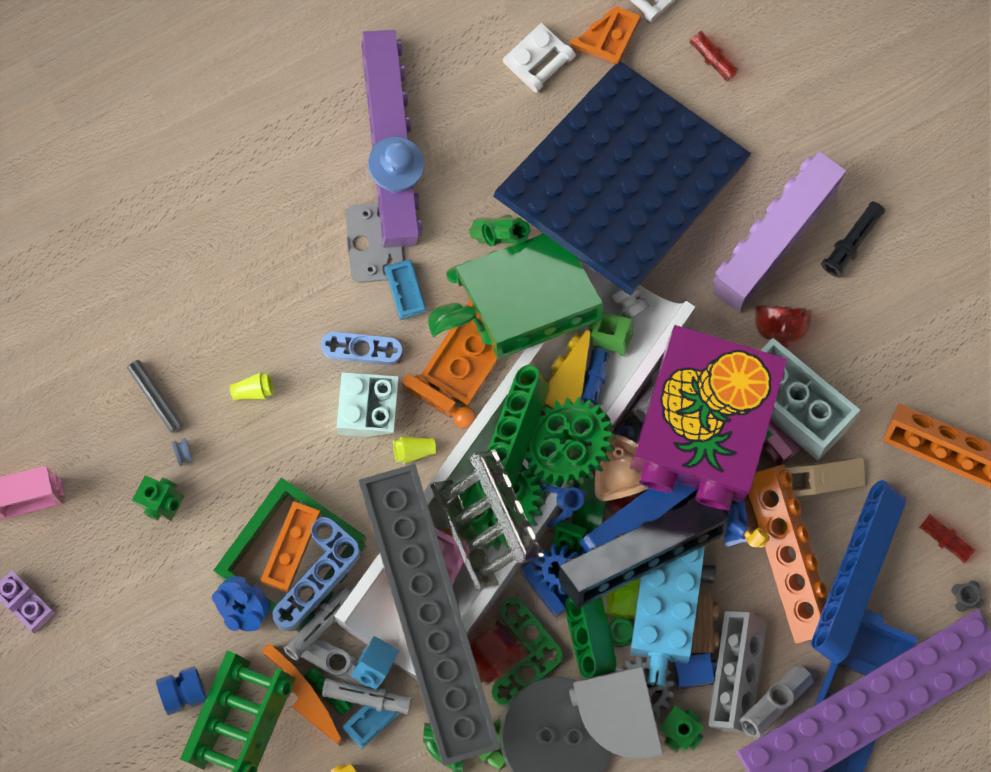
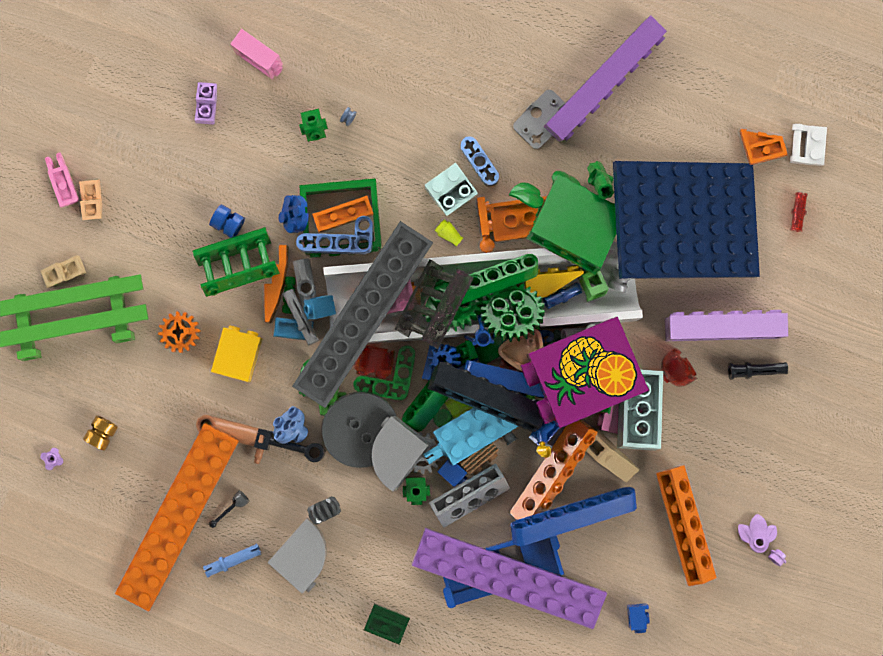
camera: 55 degrees right, 10 degrees up
(155, 396) = (365, 77): dark grey axle -> none
(254, 387) = (412, 124): neon yellow cone -> none
(321, 621) = (315, 261): light grey pin -> none
(395, 164) = (591, 95): medium blue plate -> none
(405, 289) = (529, 157): dark azure plate -> none
(532, 52) = (718, 113): white plate -> none
(767, 711) = (460, 526): light grey piece -> none
(947, 538) = (632, 547): clear red pin -> none
(970, 588) = (616, 581): dark grey plate -> none

